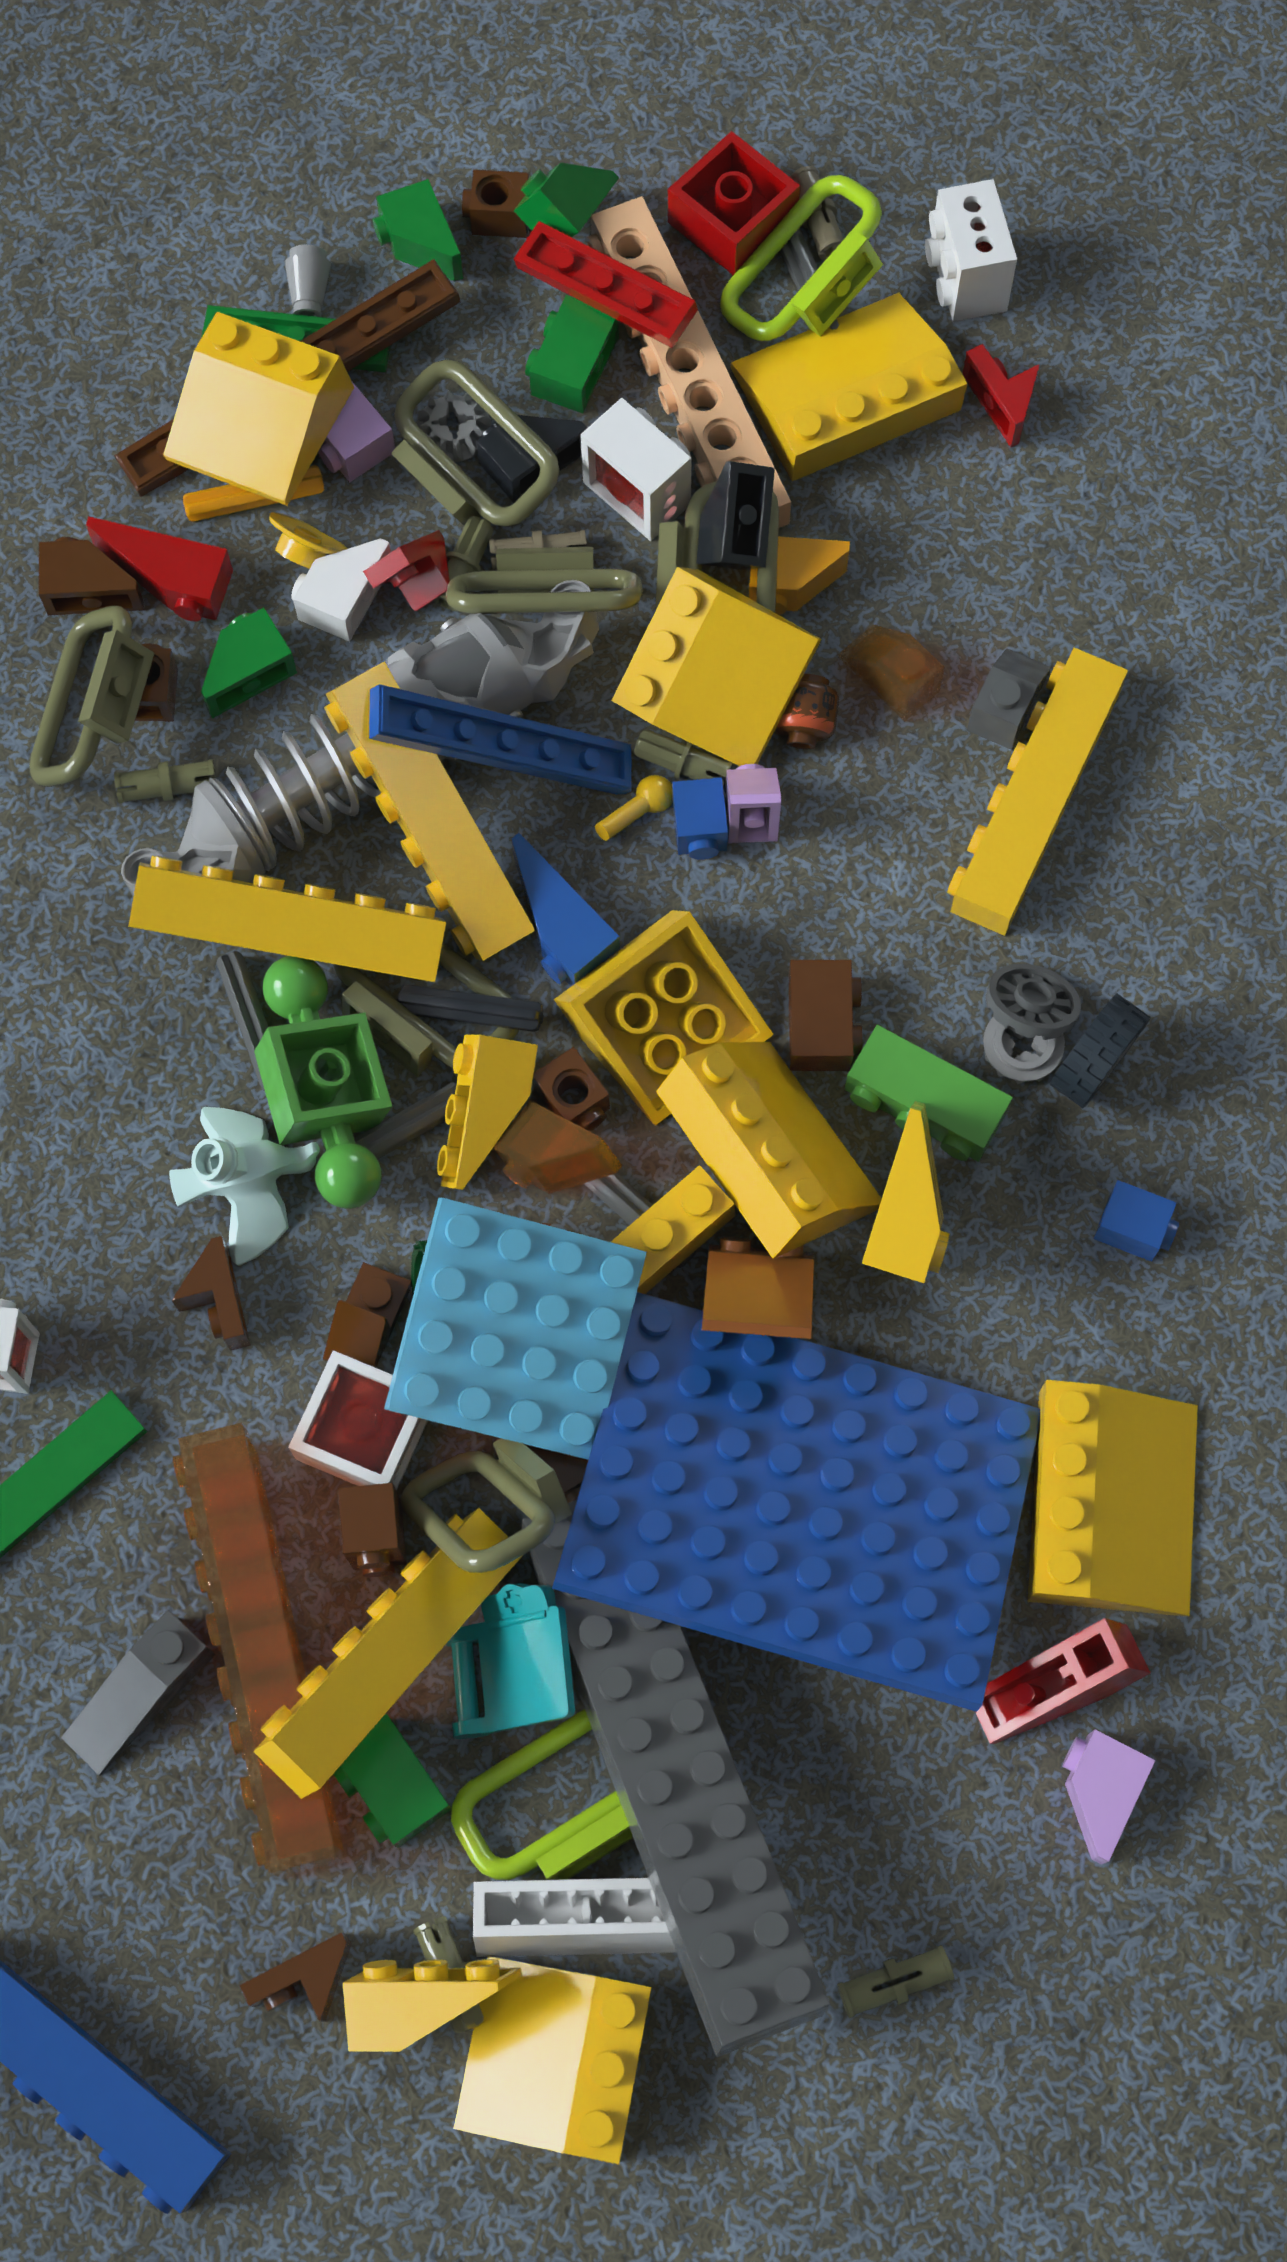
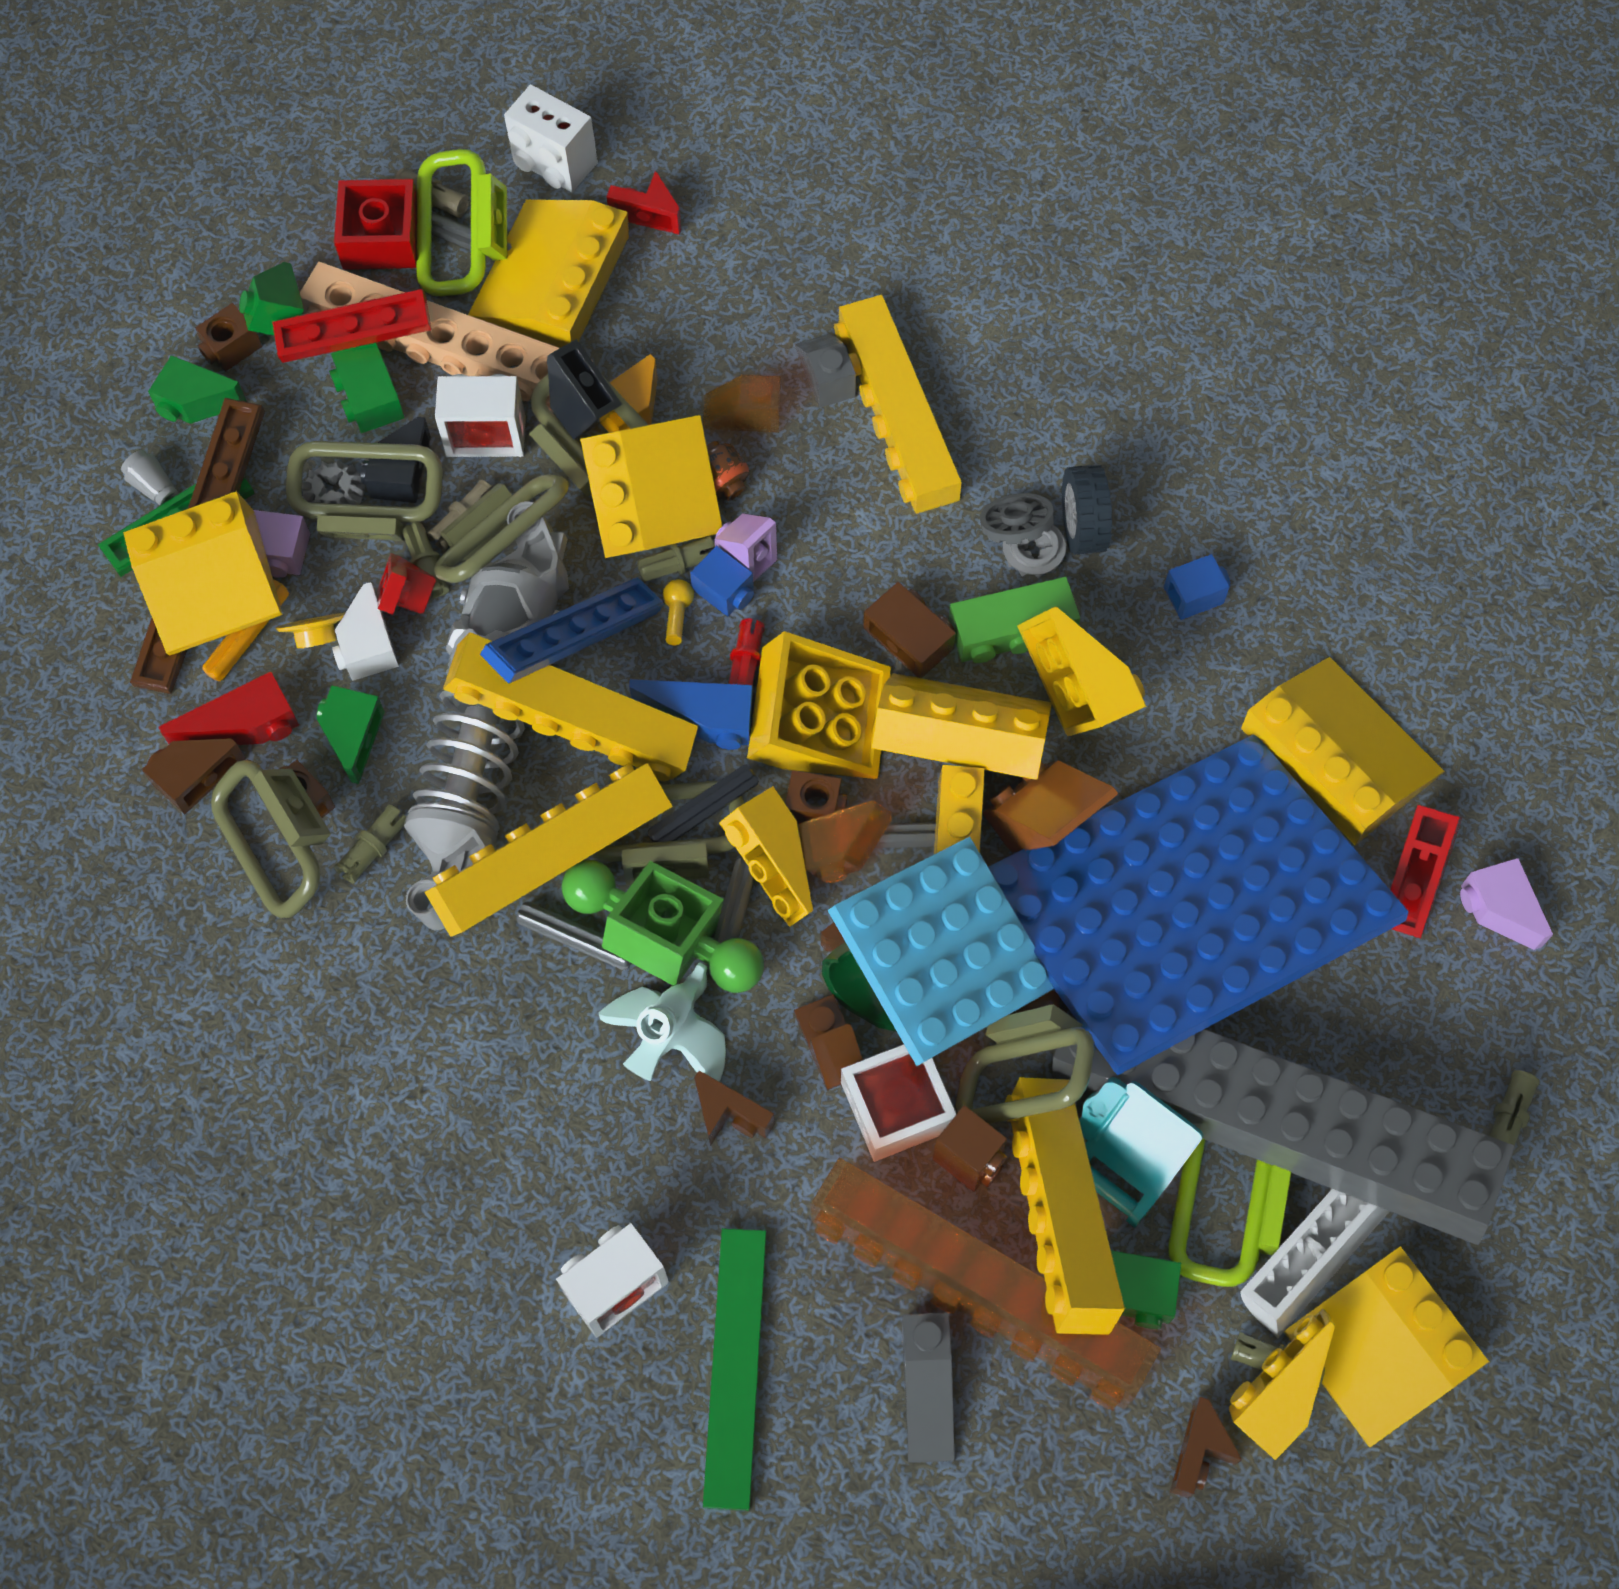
camera: 45 degrees left, 5 degrees down
(651, 905) = (746, 654): none -> red axle

